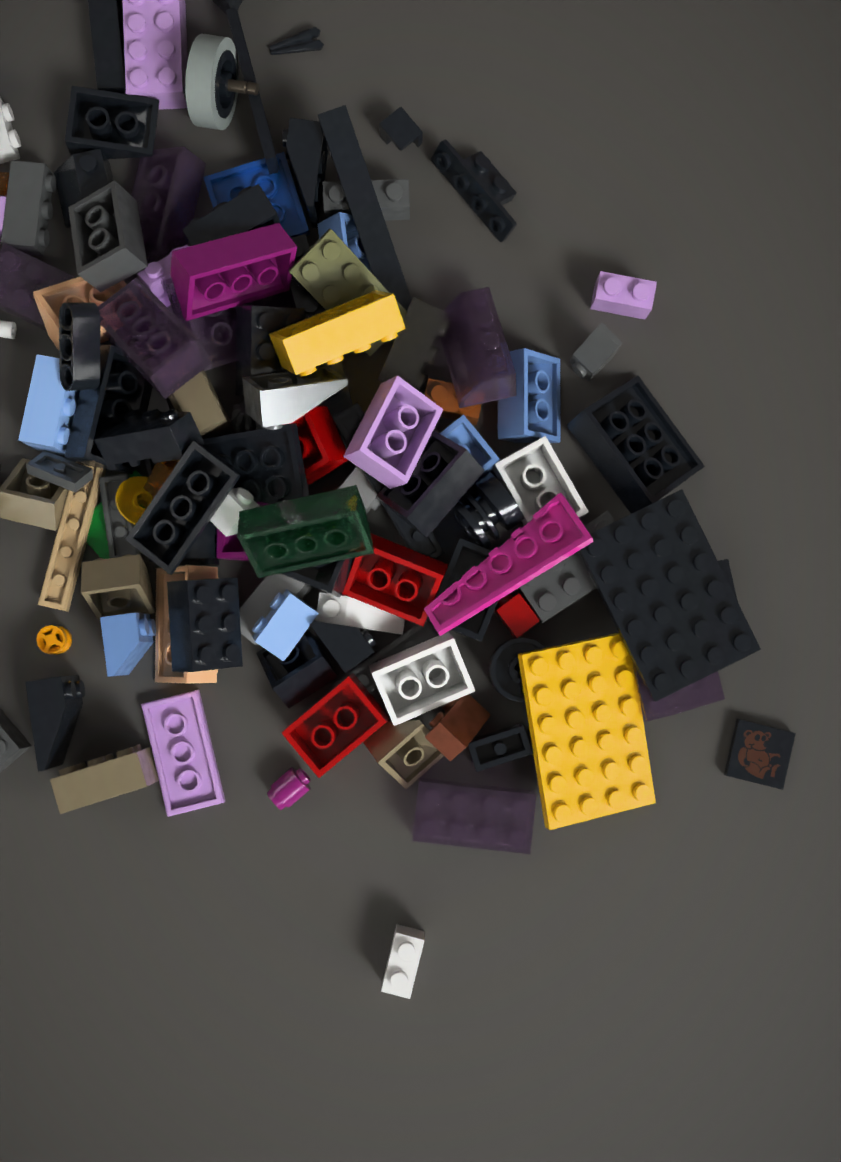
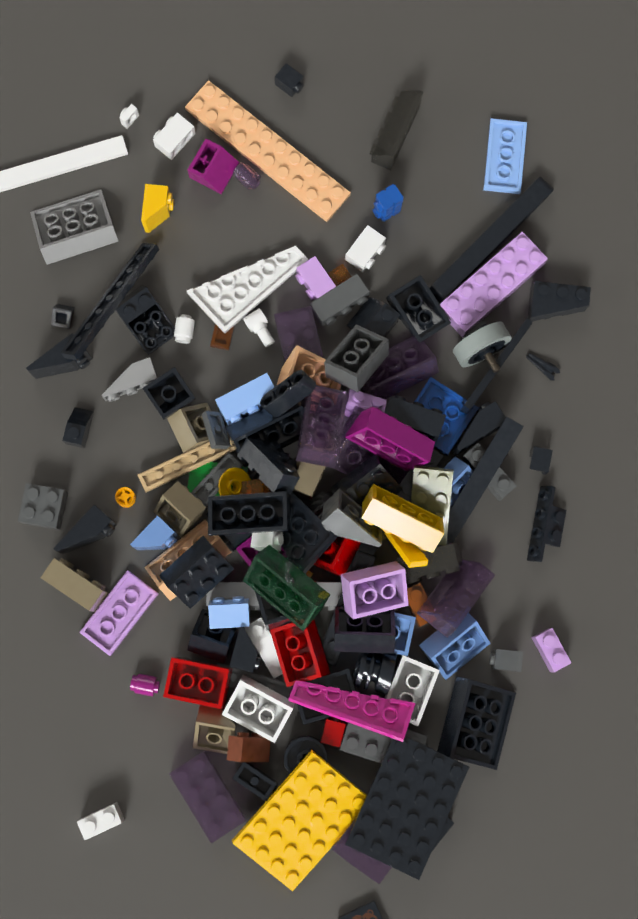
camera: 45 degrees right, 5 degrees down
(380, 356) = (408, 551): none -> yellow tile

